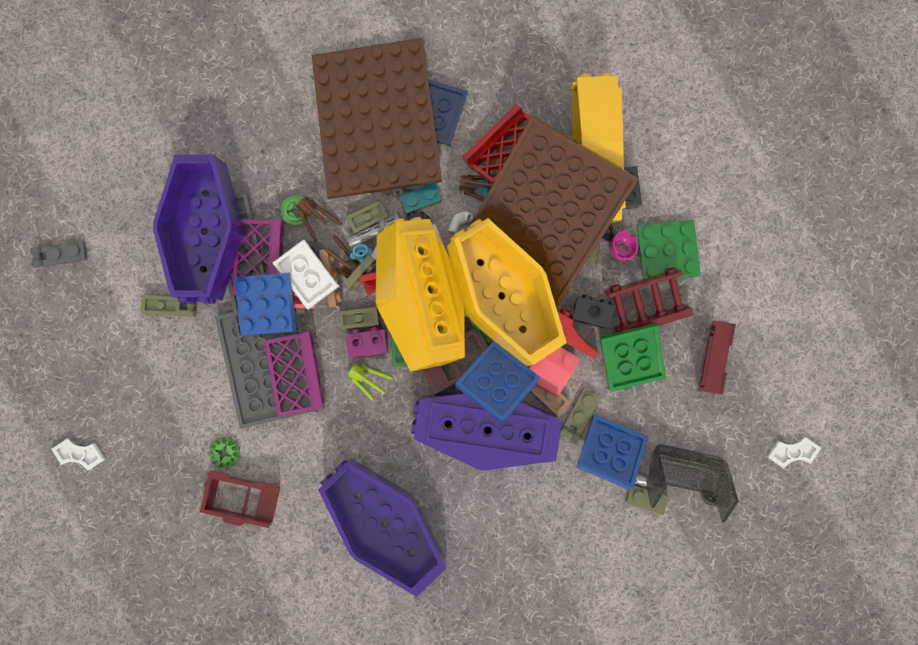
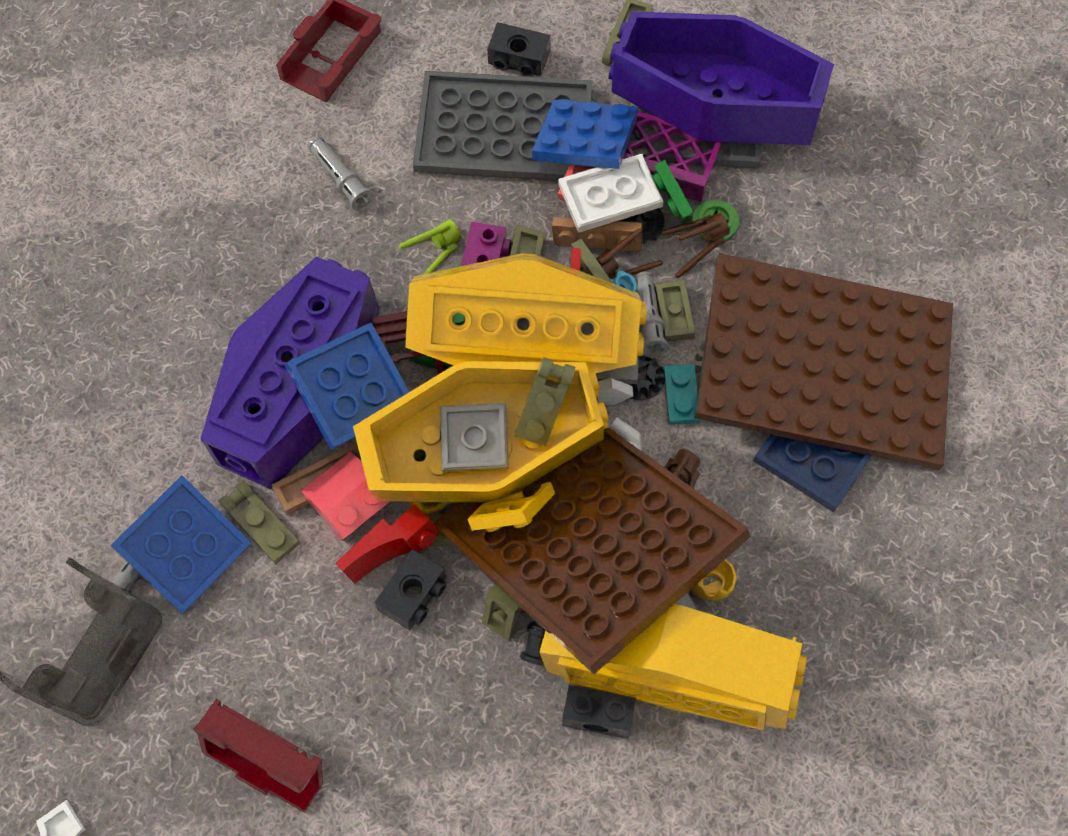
camera: 105 degrees right, 20 degrees down
(198, 363) = (519, 49): none -> black brick
(232, 448) = (401, 58): bright green gear -> none
(288, 241) = (678, 203): none -> green wing
(311, 370) = (471, 173): magenta fence -> none
(338, 449) = (346, 181): none -> light grey pin
(377, 546) = (211, 173): dark purple container -> none
(480, 259) = (544, 401): none -> olive plate
(495, 138) = (759, 550): red fence -> none
(506, 298) = (474, 437): none -> light grey tile
(546, 258) = (510, 510): none -> yellow wing
(626, 239) = (494, 666): dark pink hair -> none
(633, 357) = (315, 624): green plate -> none
(639, 497) = (72, 592): olive plate -> none
(662, 315) = (365, 667): dark red fence -> none
(668, 246) = (471, 751): green plate -> none

